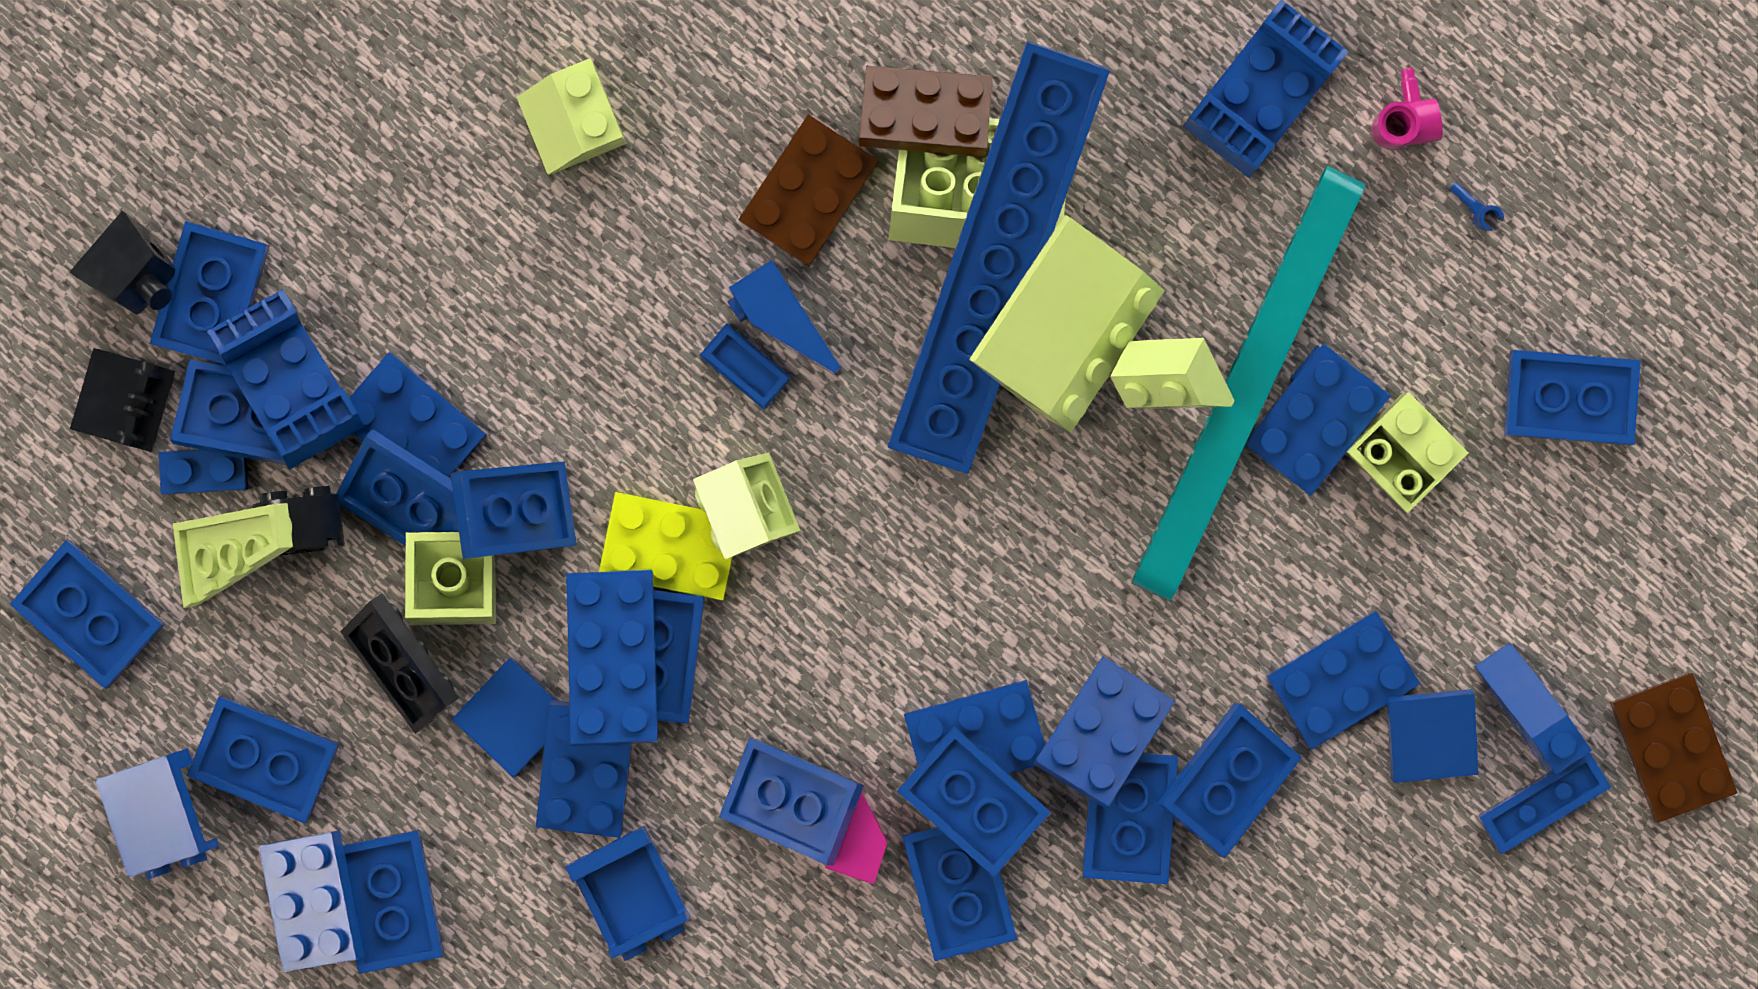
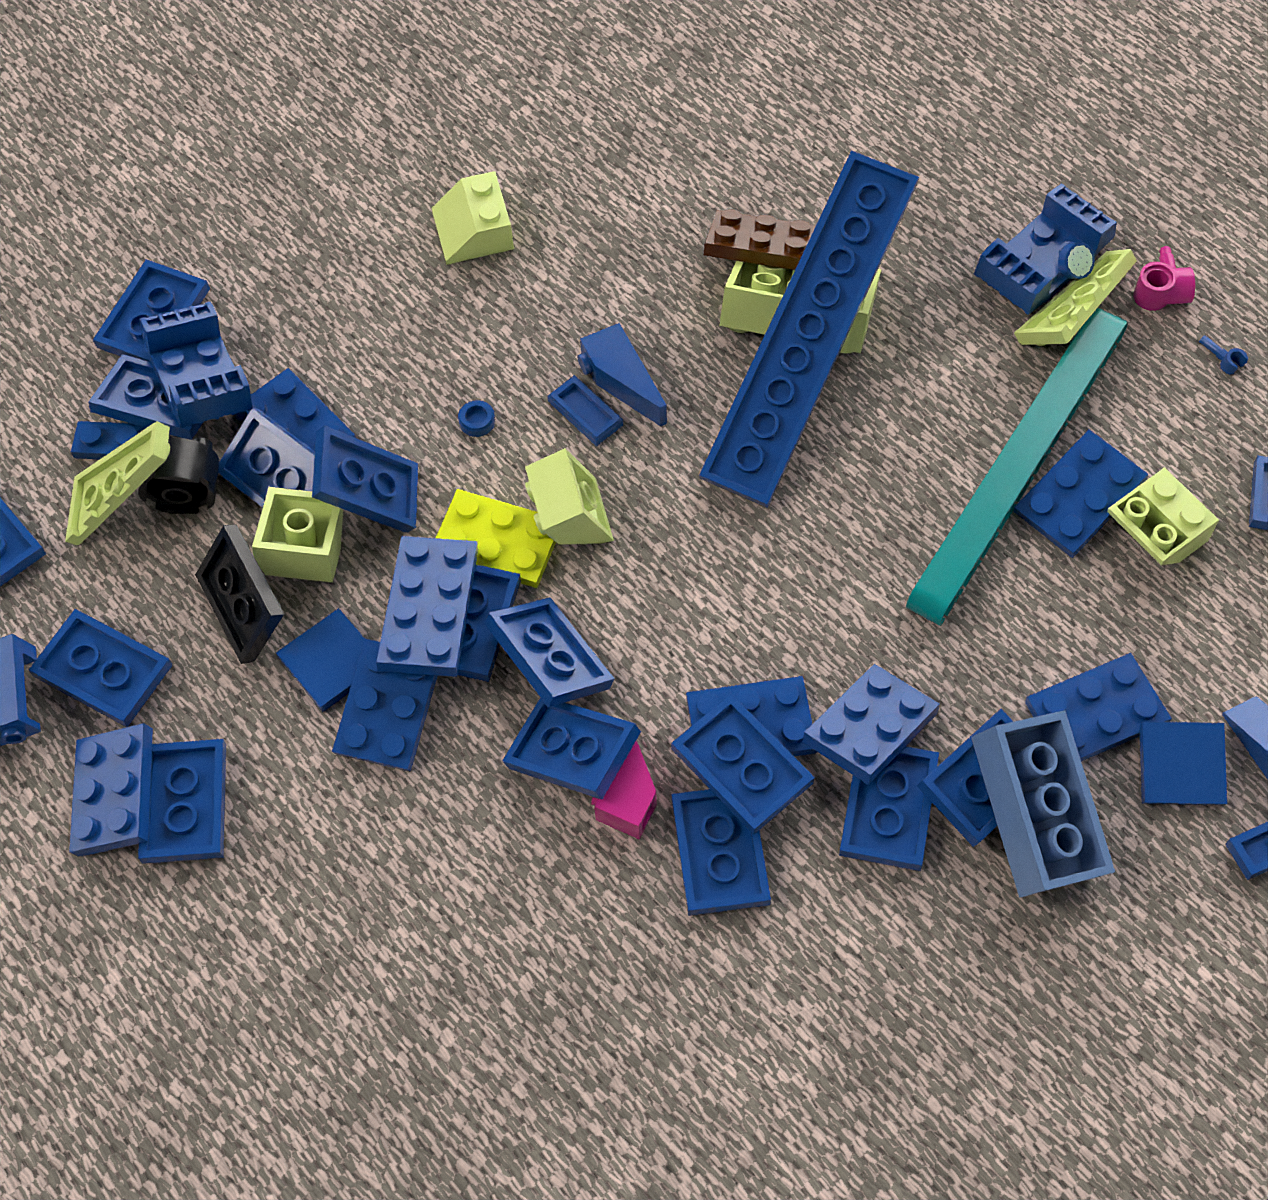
camera: 10 degrees right, 25 degrees down
(122, 400) = (60, 382): black hinge -> none
(127, 266) = (87, 283): black torso -> none
(621, 391) = (476, 418): none -> blue tile
(630, 893) = (406, 816): blue panel -> none
(751, 691) = (549, 651): none -> blue plate
(808, 190) = (657, 291): reddish brown plate -> none
(1067, 324) = (864, 386): yellowish green slope -> none
(1170, 375) = (955, 434): yellowish green slope -> none
(1287, 816) = (1042, 803): none -> medium blue brick
(1300, 169) = (1077, 302): none -> yellowish green wing
(1302, 105) = (1076, 260): none -> tile

